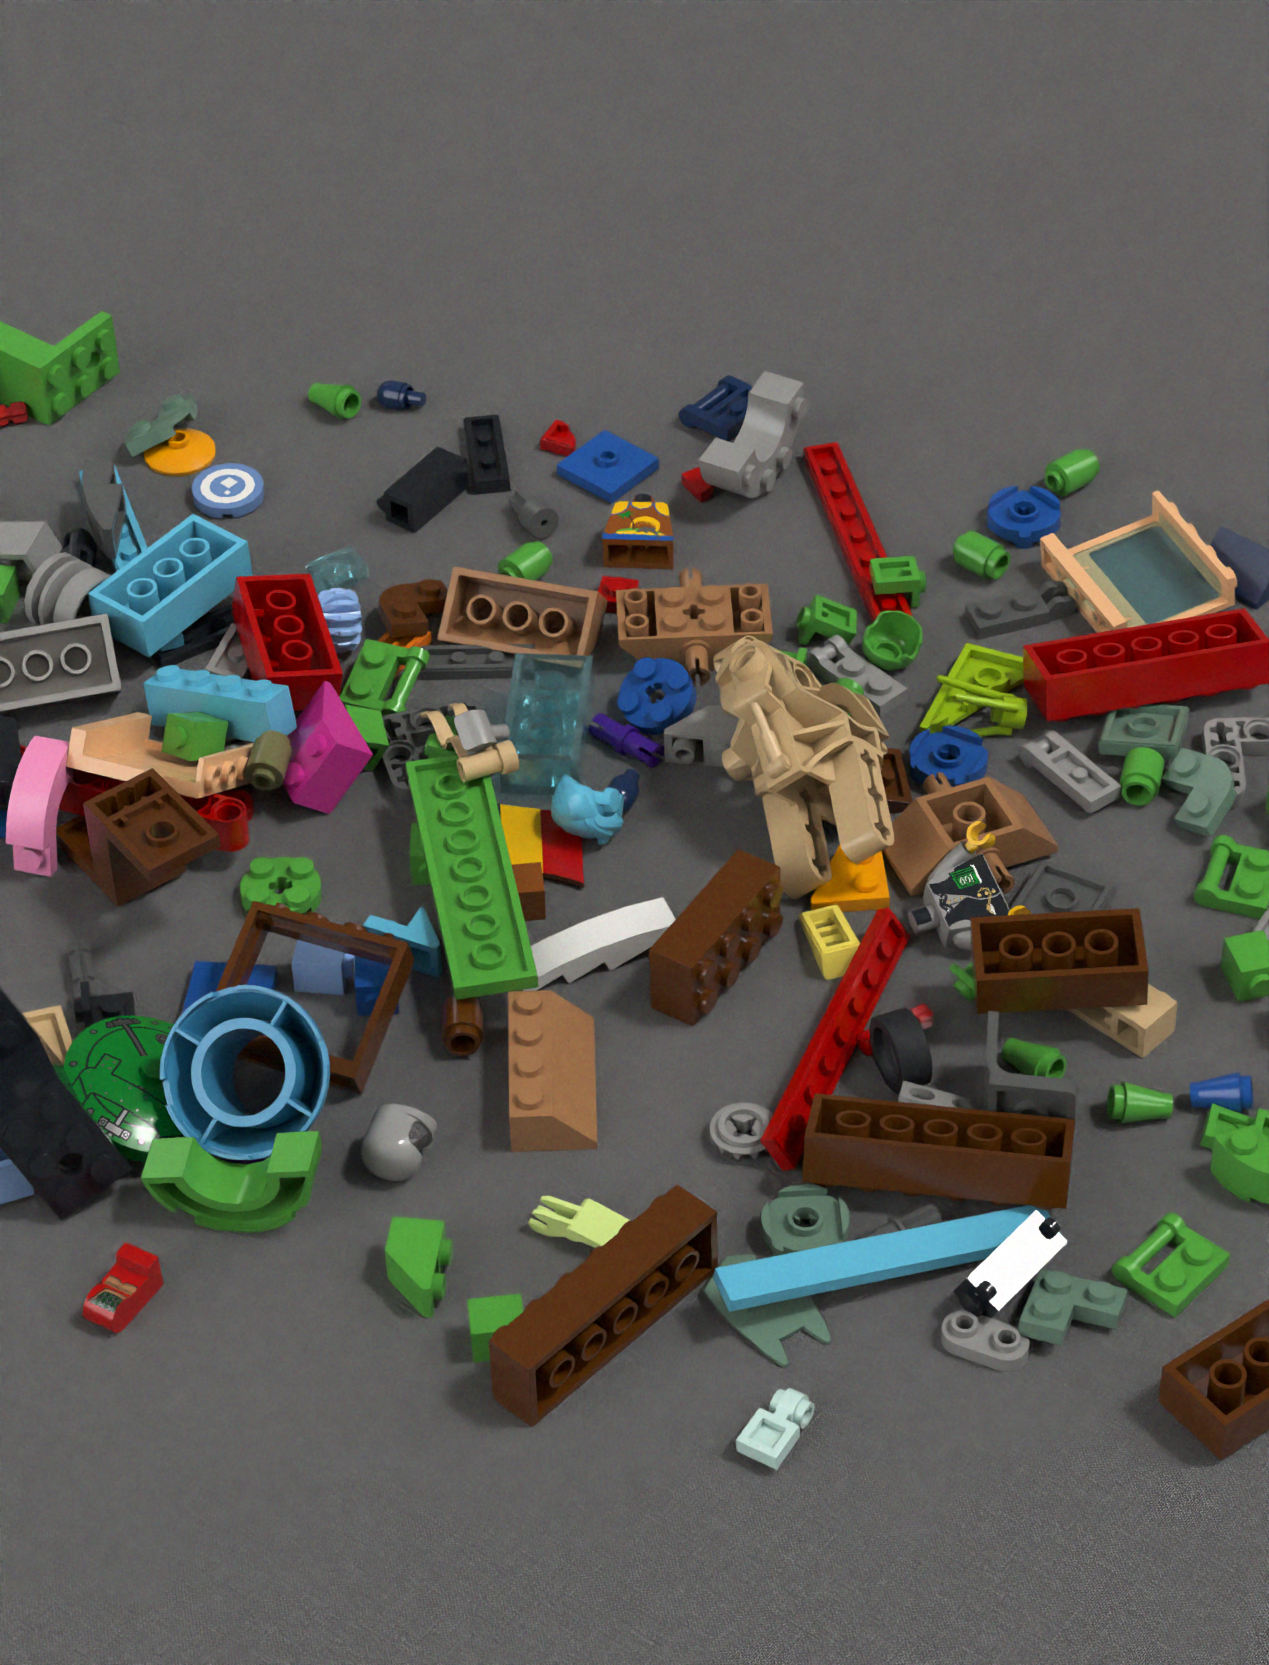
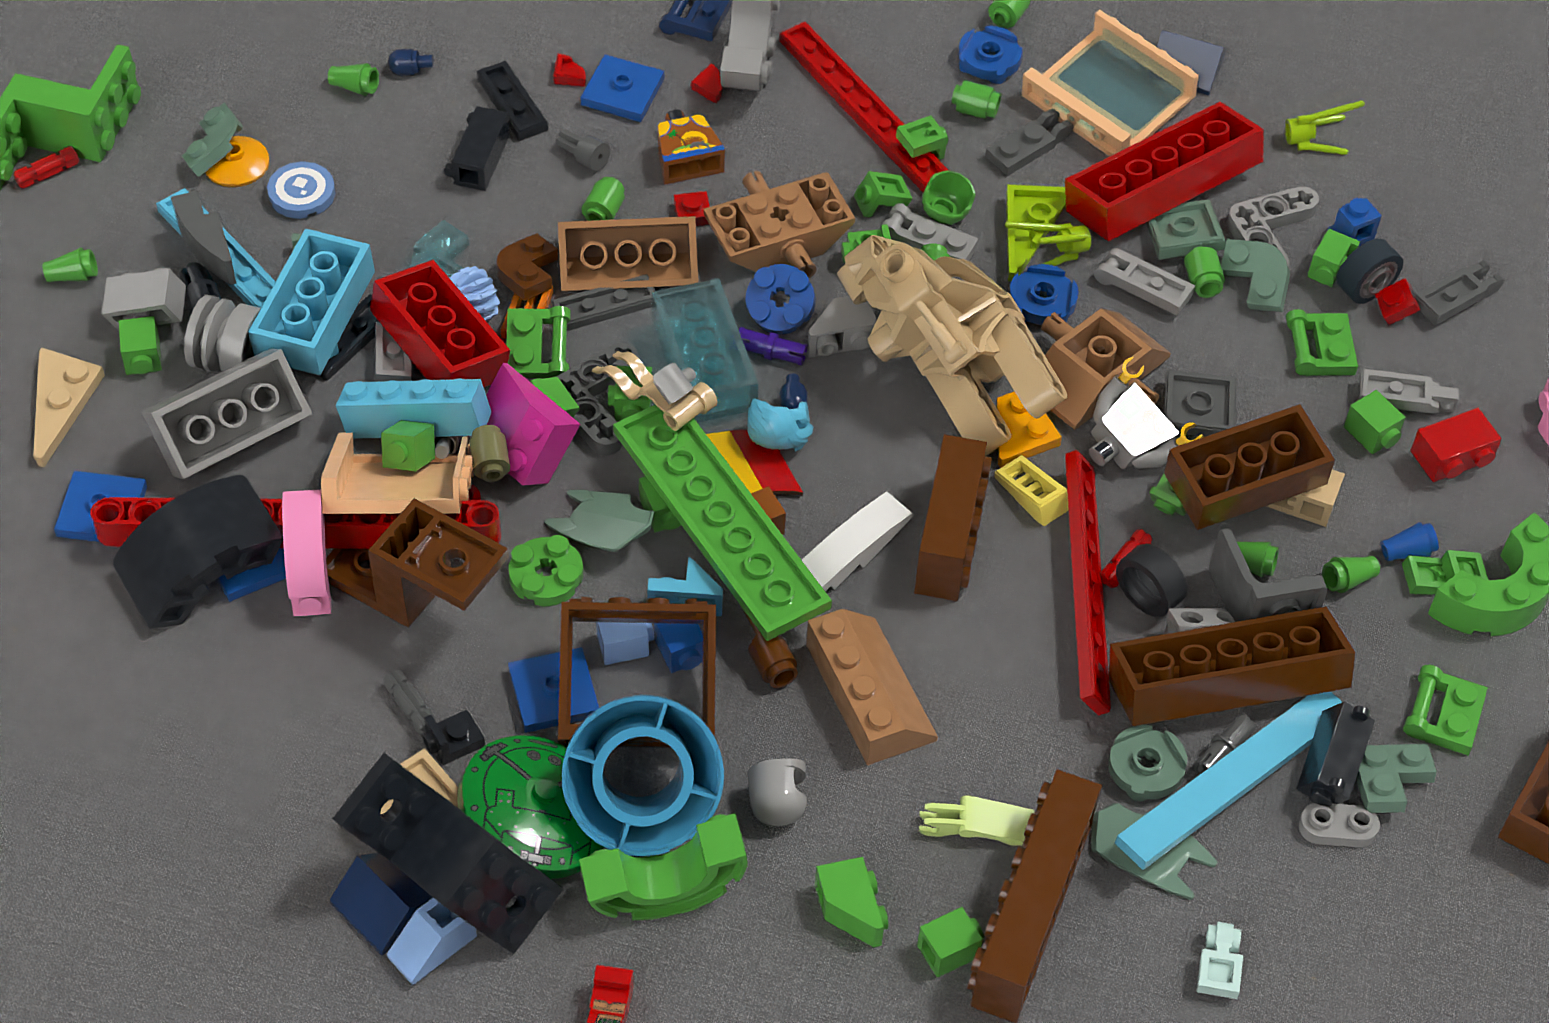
camera: 25 degrees left, 10 degrees up
(359, 856) = (603, 520): none -> sand green shield
(742, 1118) = (1041, 679): light grey gear -> none

